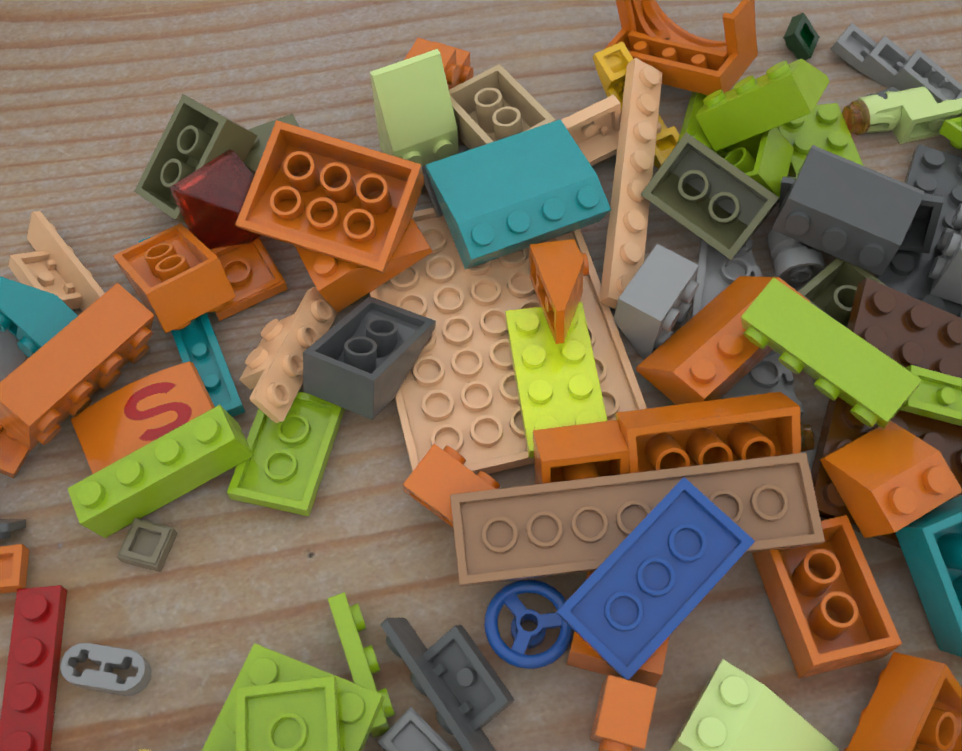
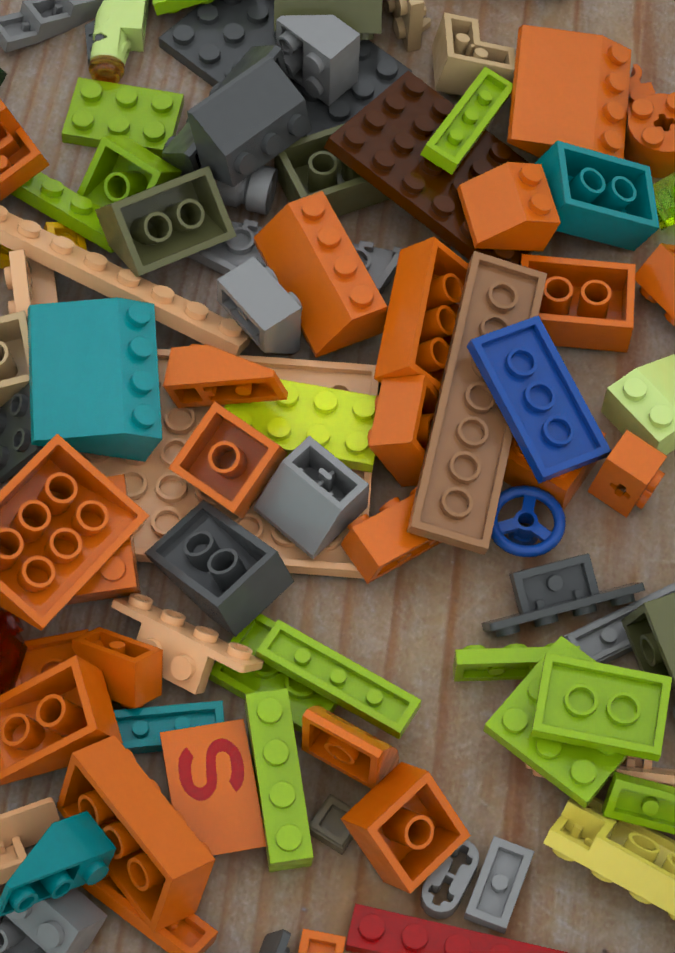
camera: 75 degrees left, 0 degrees up
(102, 720) = (499, 885): none -> light grey plate
(127, 600) = (405, 827): none -> orange brick
(197, 517) = (346, 747): none -> orange slope
(250, 313) = (128, 665): none -> orange slope
(279, 494) = (338, 679): none -> lime plate
(466, 406) = (312, 497): none -> light grey slope
(471, 318) = (228, 460): none -> orange brick
(761, 103) = (90, 136): lime slope -> none
(829, 354) = (395, 195): lime brick -> none

